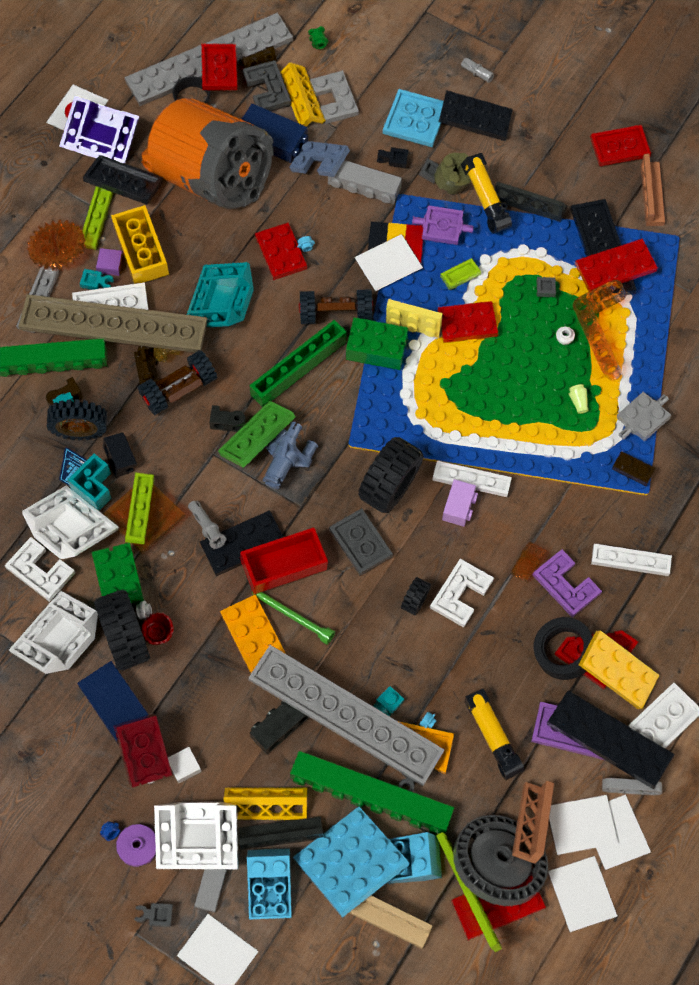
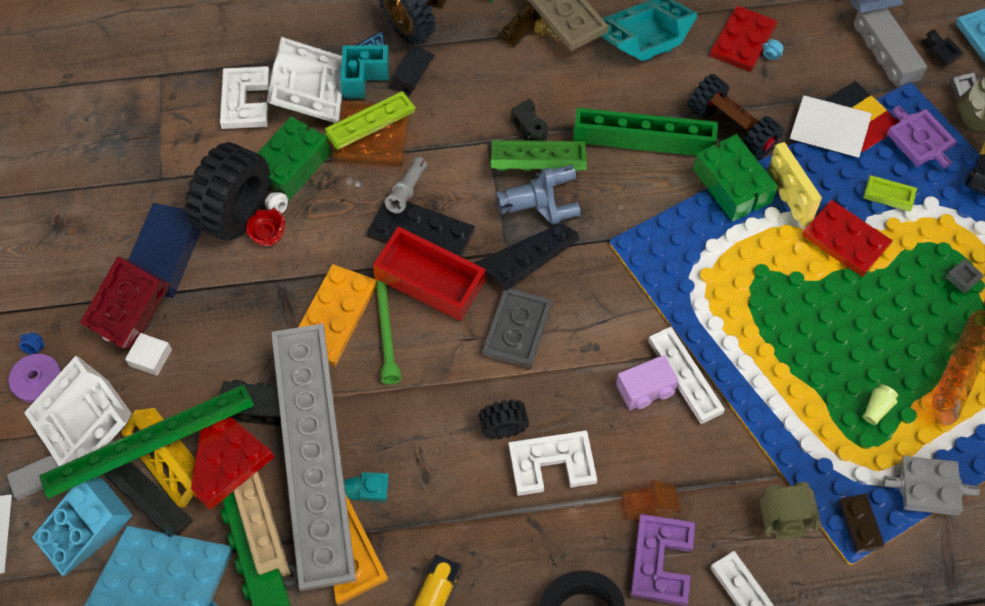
camera: 50 degrees right, 5 degrees down
(57, 635) = (173, 157): white slope -> none
(178, 383) = (530, 60): plate -> none
(255, 803) = (145, 441): none -> green tile
(307, 765) = (225, 460): none -> red plate
(318, 498) = (523, 258): none -> black wing
(363, 776) = (260, 526): none -> tan fence
(390, 474) = (604, 289): black tyre -> none
(428, 720) = (381, 540): medium azure plate -> none
(565, 339) = (931, 341): white plate -> none
(598, 496) = (789, 510): none -> olive brick

